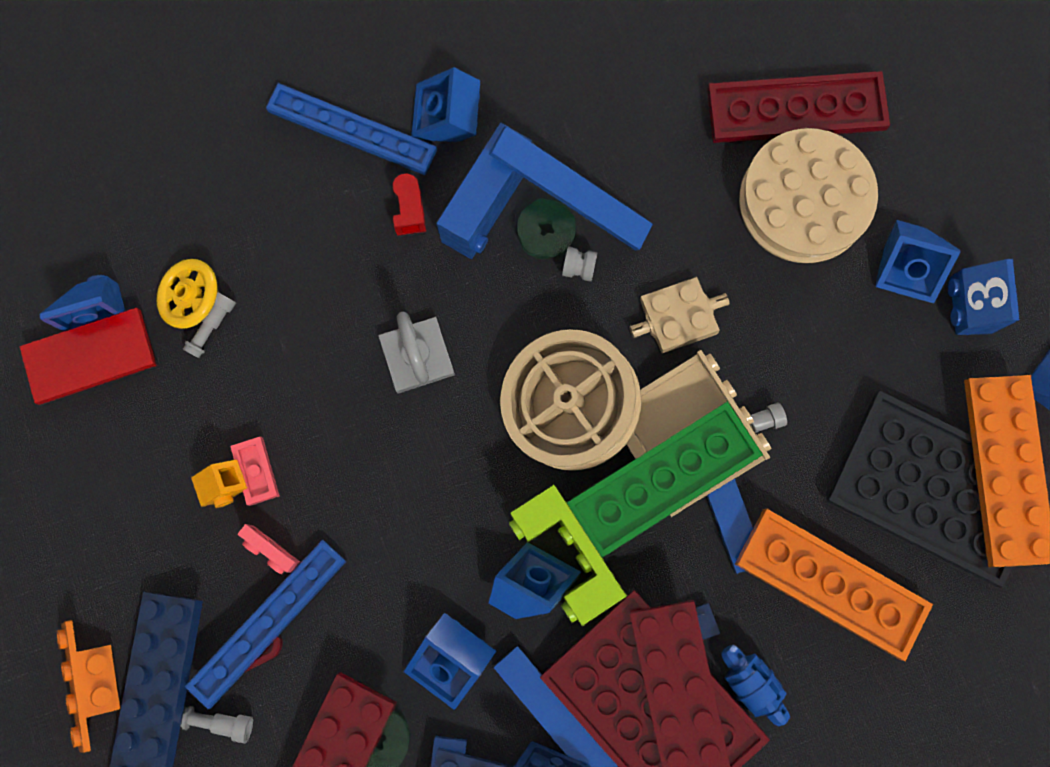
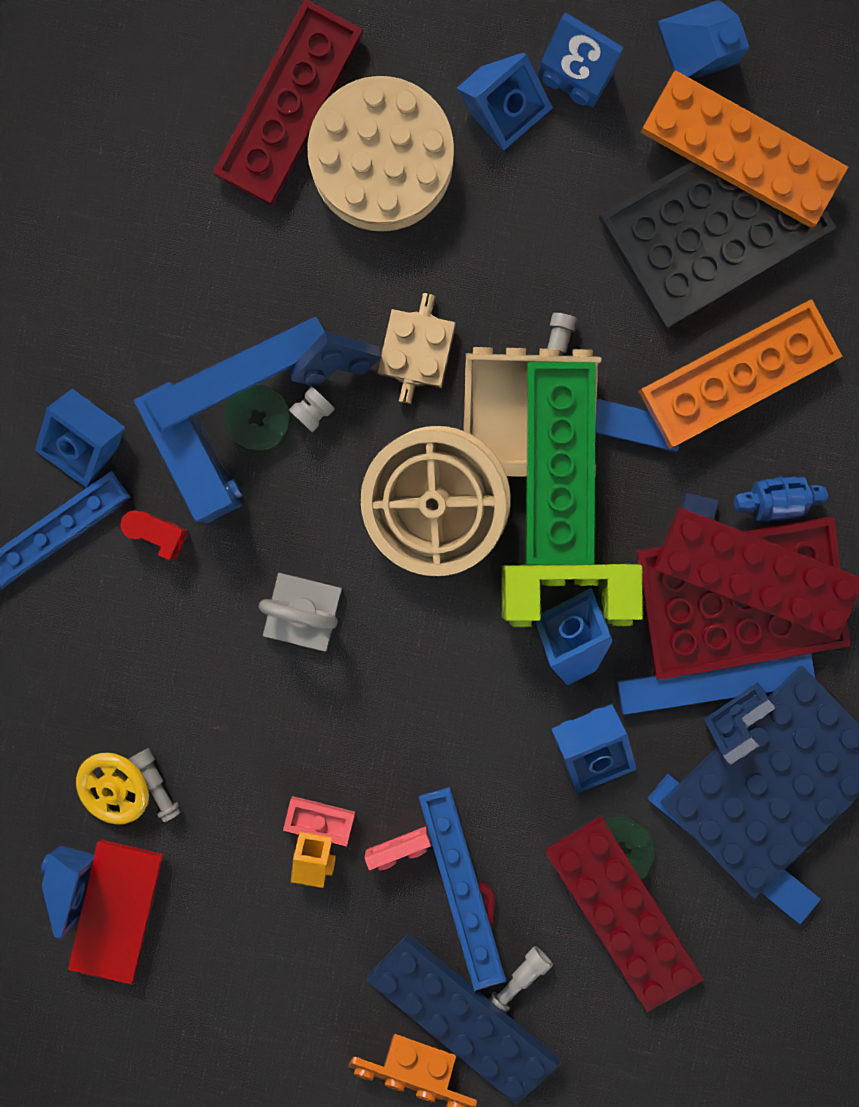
camera: 60 degrees left, 10 degrees up
(633, 250) = (333, 353): none -> dark blue plate

